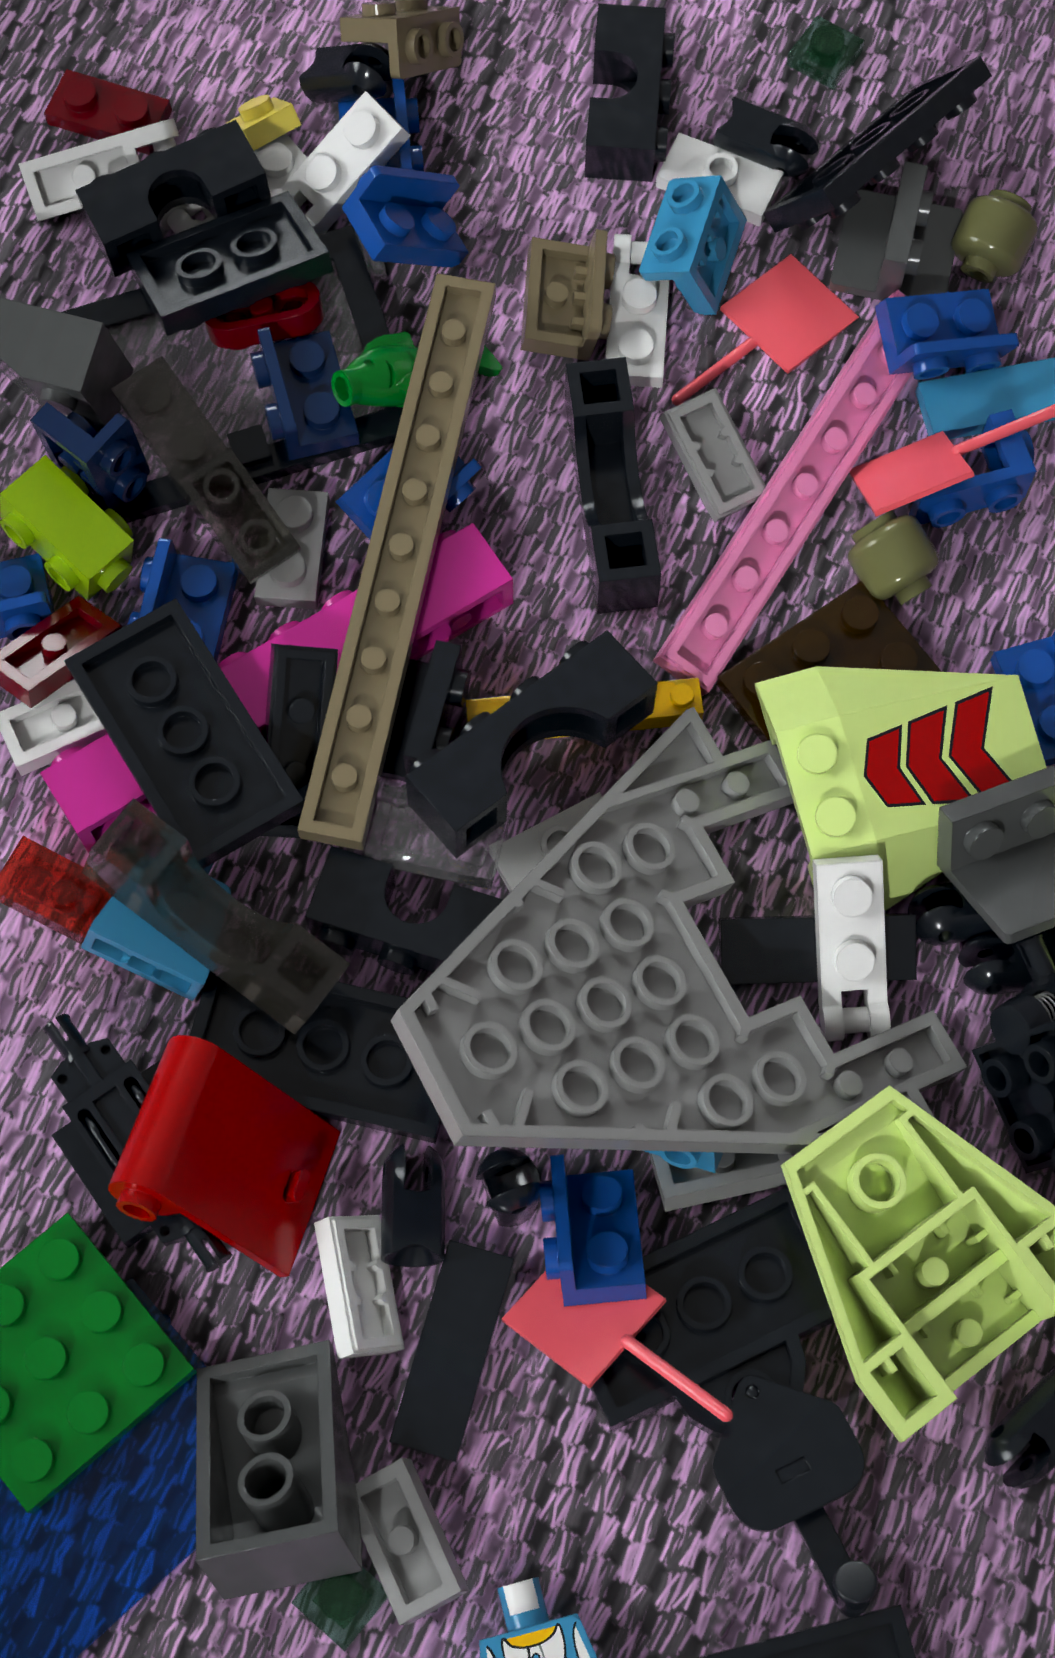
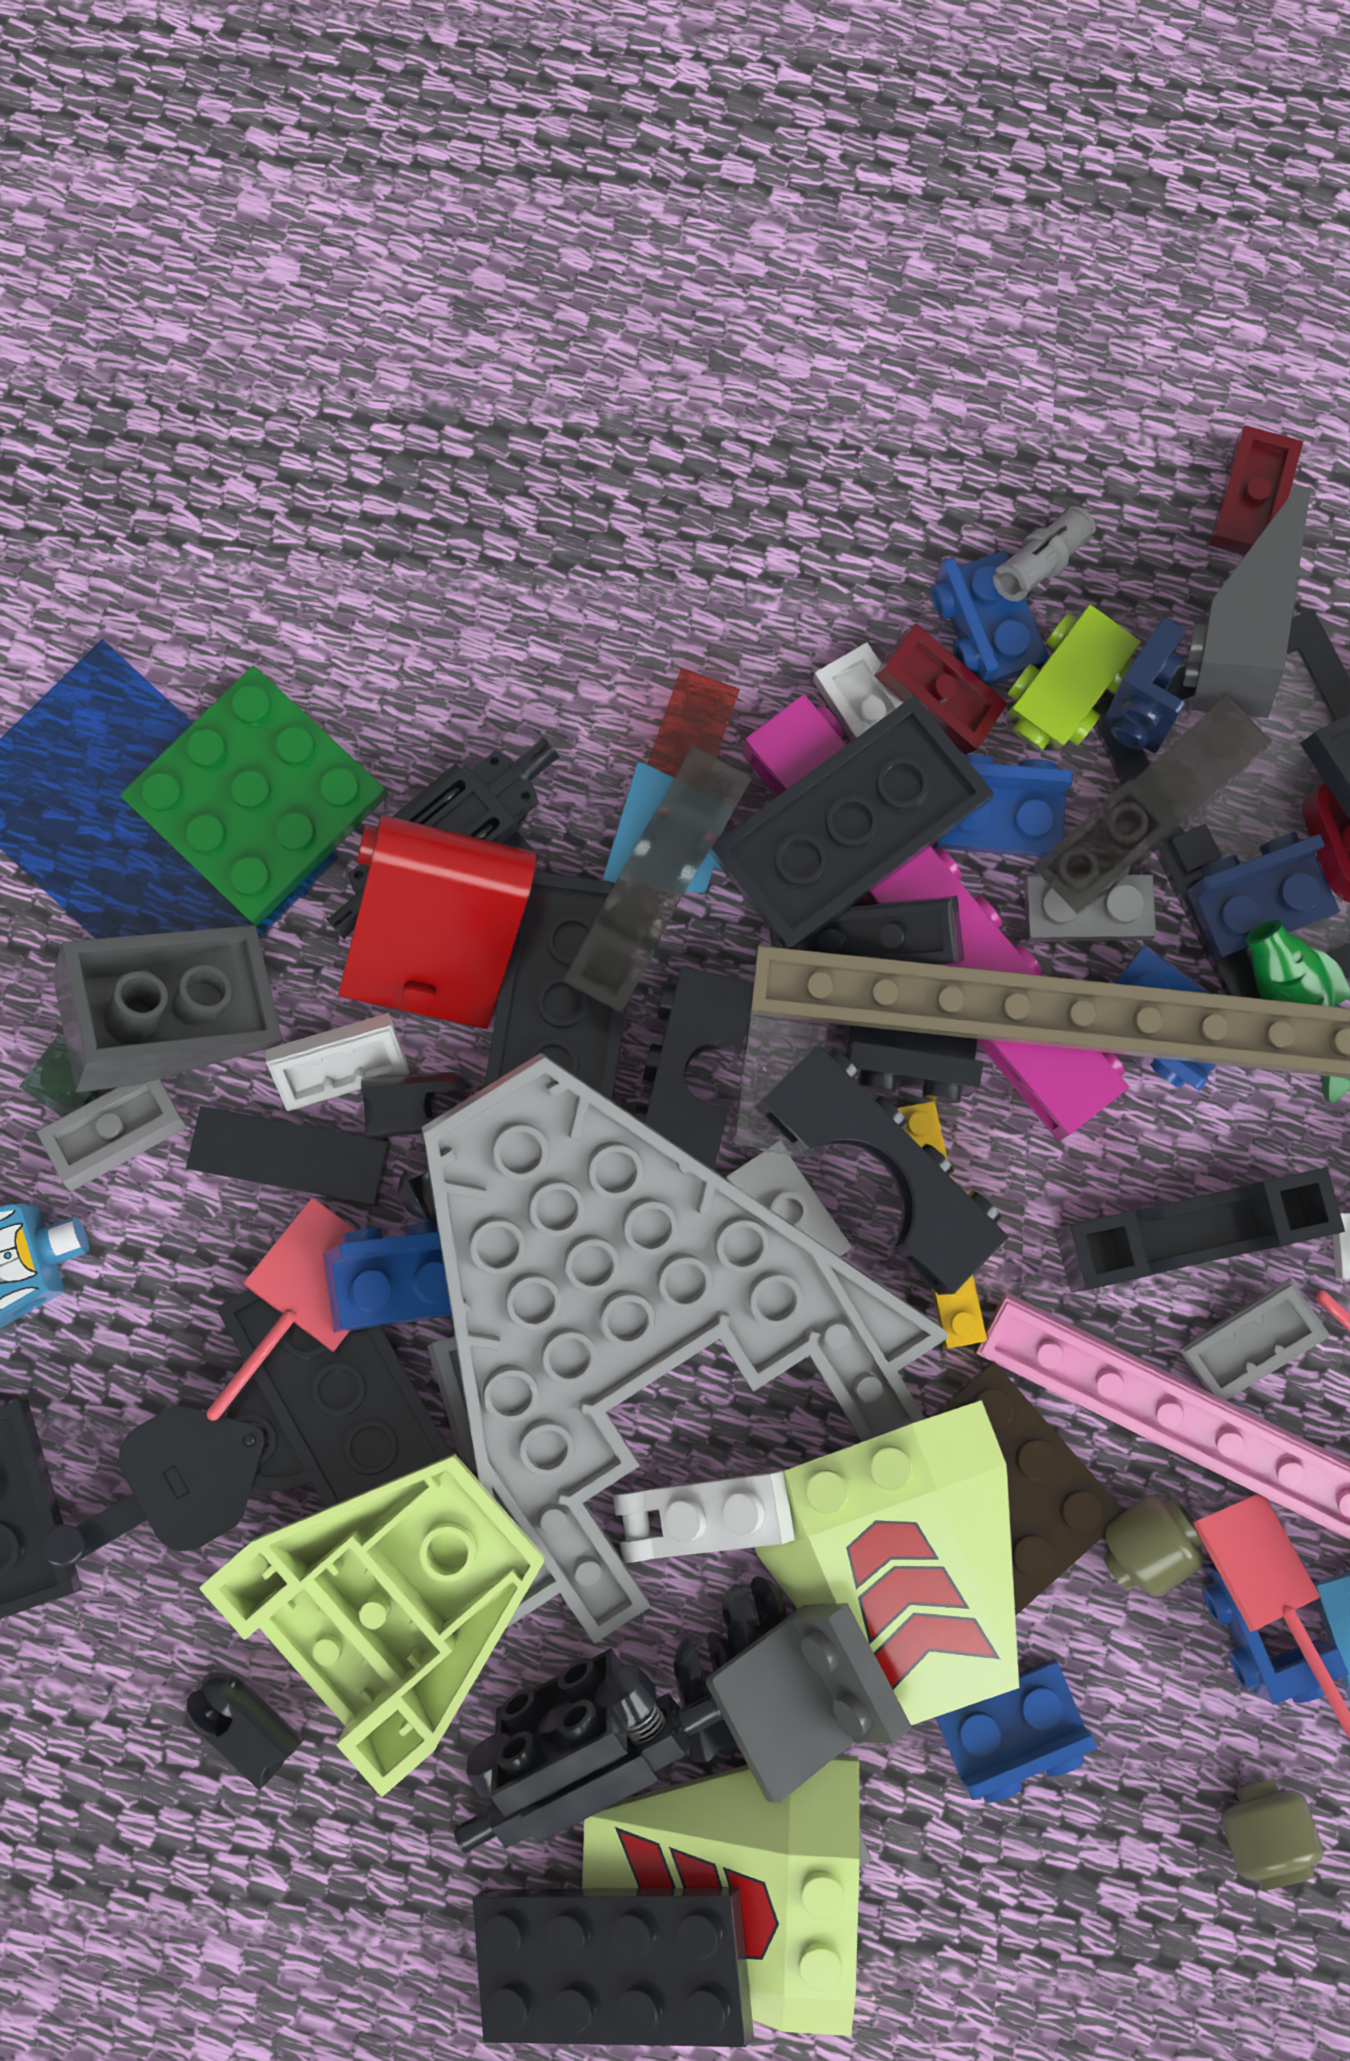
camera: 85 degrees right, 10 degrees up
(785, 948) = (699, 1450): black tile -> none

